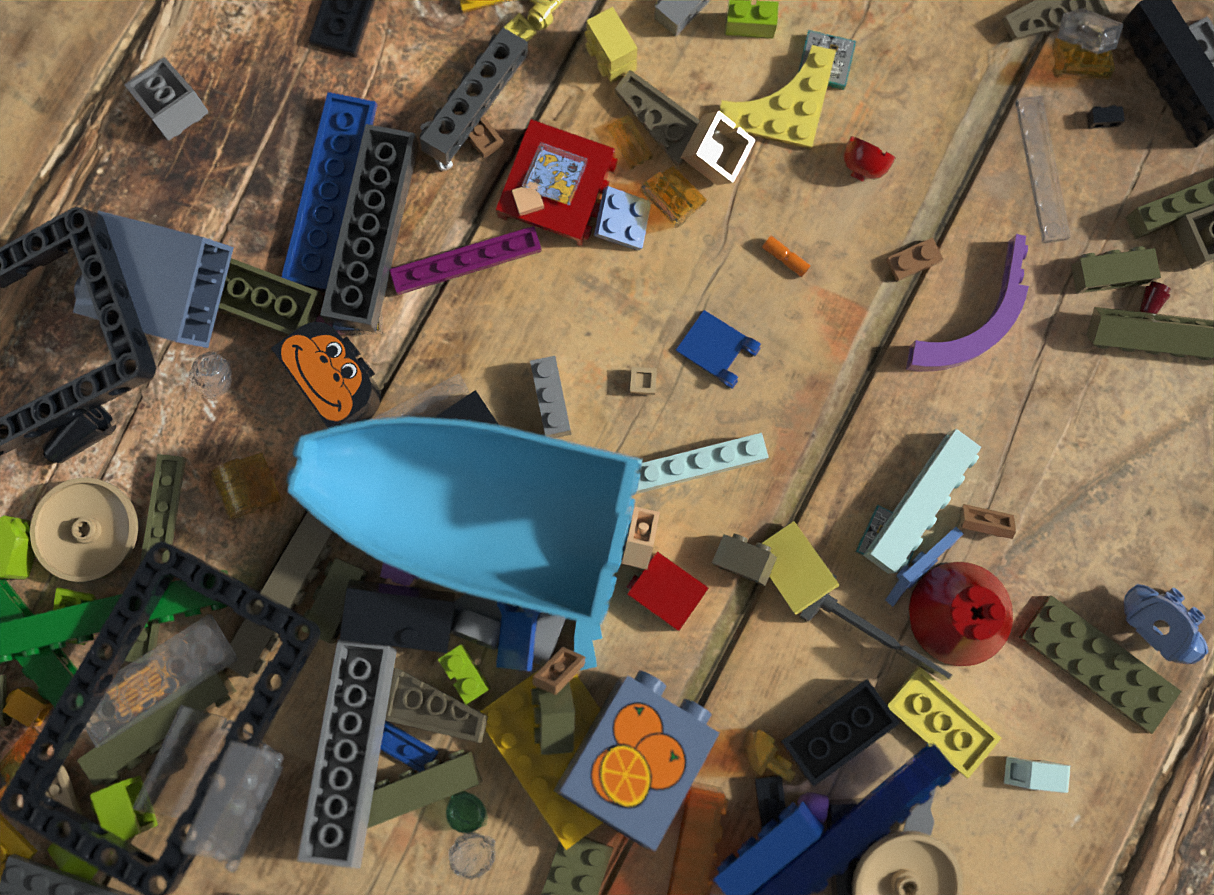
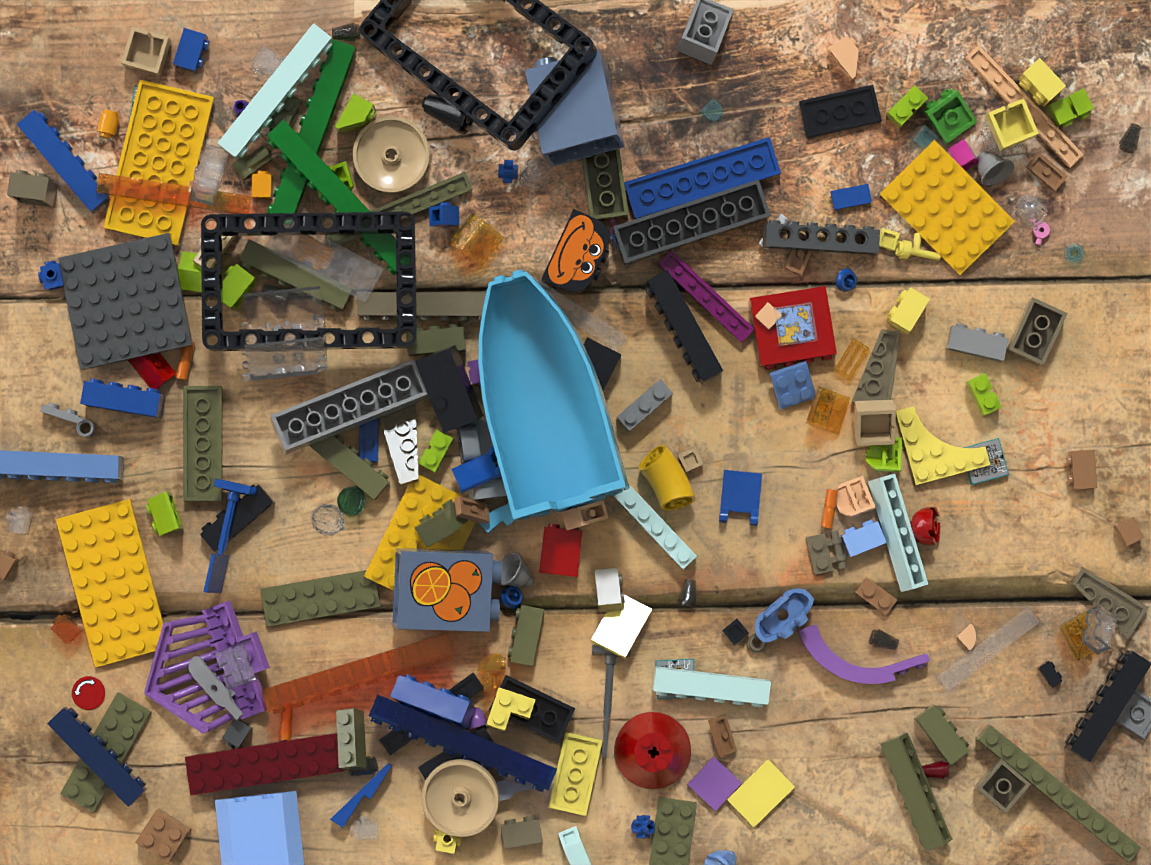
camera: 60 degrees right, 5 degrees up
(188, 404) = (508, 171): none -> blue gear
(193, 507) = (444, 215): none -> blue brick
(262, 140) = (712, 110): none -> clear light blue tile
(448, 44) = (851, 197): none -> blue tile
(485, 301) = (684, 326): none -> black brick
(537, 97) = (846, 280): none -> blue hat
(650, 417) = (667, 478): none -> yellow brick
(661, 659) = (515, 571): none -> light grey hat
(688, 680) = (511, 596): none -> blue hat
(745, 689) = (526, 635): none -> olive brick
(762, 162) = (885, 456): none -> lime slope
(790, 220) = (854, 498): none -> light nougat slope
(798, 469) = (688, 594): none -> clear smoke cone
(821, 763) = (506, 704): none -> light yellow brick
(831, 294) = (820, 553): none -> dark tan plate
(842, 236) = (863, 538): none -> light blue brick
(858, 192) = (898, 532): none -> light aqua brick
(872, 439) = (735, 631): none -> black plate
(878, 350) = (797, 604): none -> medium blue piece
(903, 417) = (761, 647): none -> dark tan plate
(922, 563) = (669, 707): medium blue wing -> none
(970, 278) = (881, 639): none -> clear smoke cone
(982, 829) = (521, 832): none -> dark tan brick
(1015, 183) = (968, 636): none -> light nougat tile
(1038, 562) = (714, 783): none -> medium lavender tile
(1050, 675) = (643, 826): none -> blue gear
(1077, 514) = (760, 793): none -> light yellow tile

